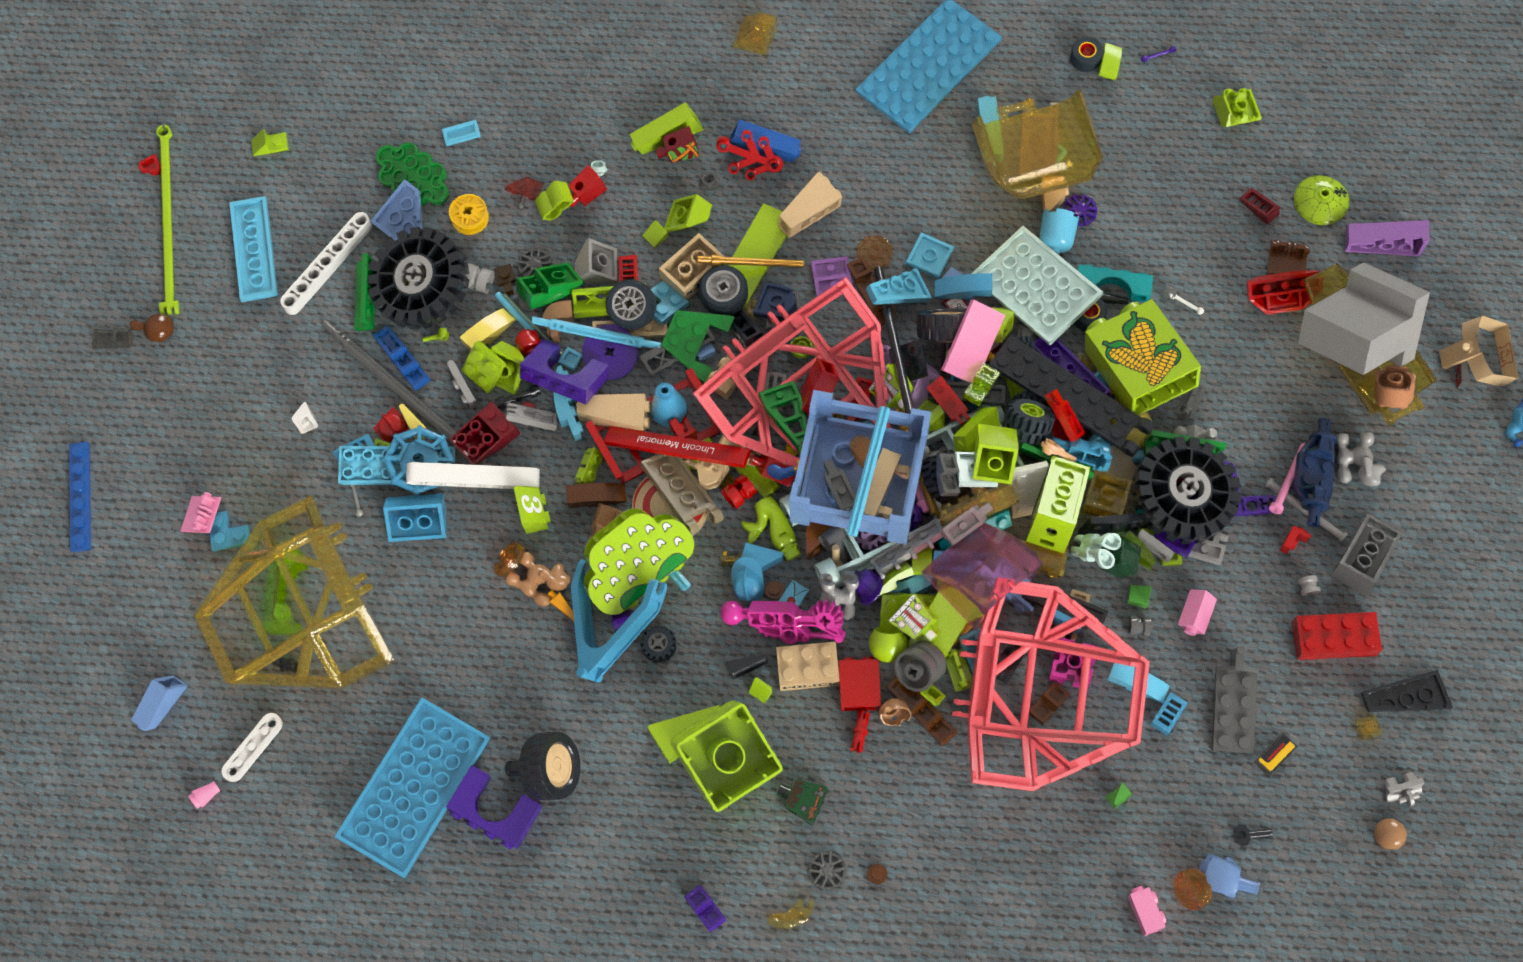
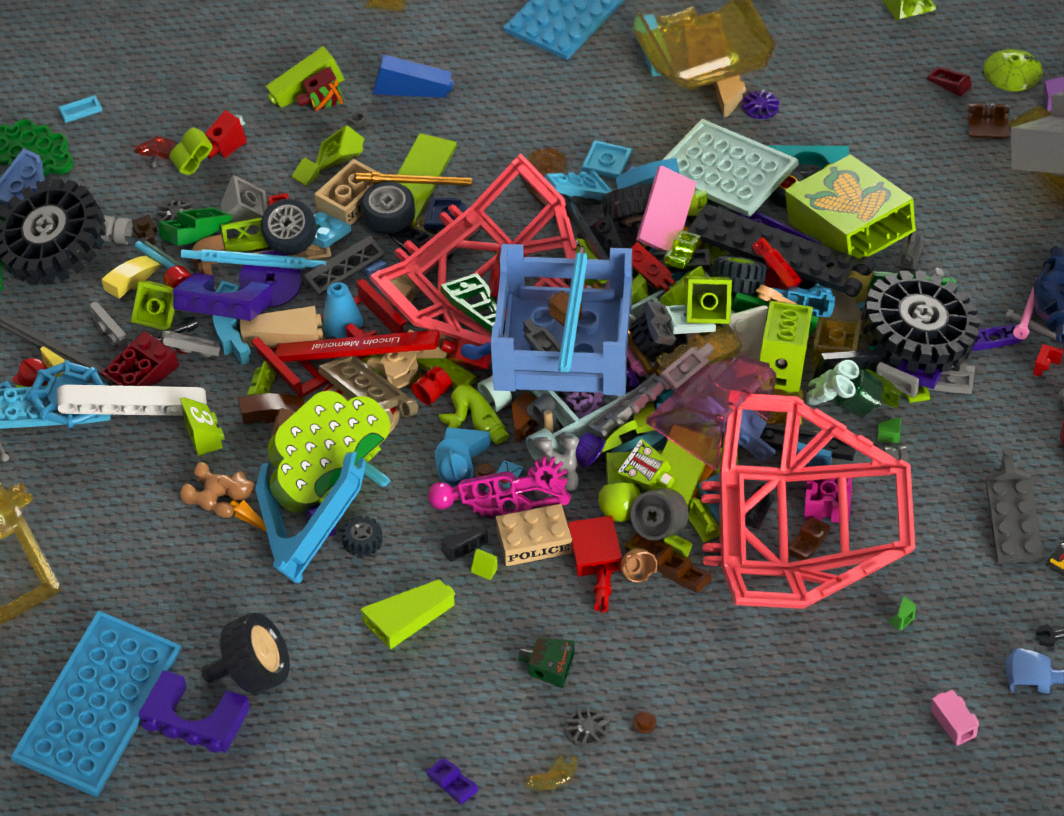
camera: 10 degrees left, 20 degrees down
(401, 358) = (37, 311): blue slope -> none
(415, 517) = (70, 452): dark azure slope -> none
(442, 333) = (80, 282): lime hand -> none
(471, 223) = (98, 175): yellow wheel -> none
(483, 366) = (131, 304): lime plate -> none
(509, 559) = (182, 474): clear orange tile -> none
(686, 337) = (354, 248): green wing -> none
(726, 755) = (454, 611): lime brick -> none
(730, 557) = (428, 449): clear yellow slope -> none
(751, 156) = (402, 89): red plant -> none
(802, 341) = (480, 256): lime plate -> none
(810, 205) = (470, 127): tan slope -> none
(829, 272) = (512, 194): medium lavender slope -> none
(885, 470) = (590, 325): tan brick -> none
(1058, 229) = (741, 115): medium azure cylinder -> none
(1124, 675) = (884, 500): medium azure slope -> none
(1163, 728) = (939, 546): dark azure slope -> none
(1171, 293) = (871, 162): hinge -> none
(1192, 889) = (1001, 686): clear orange tile -> none
(1197, 612) = (955, 434): bright pink brick -> none
(1279, 291) = (983, 147): red wedge -> none

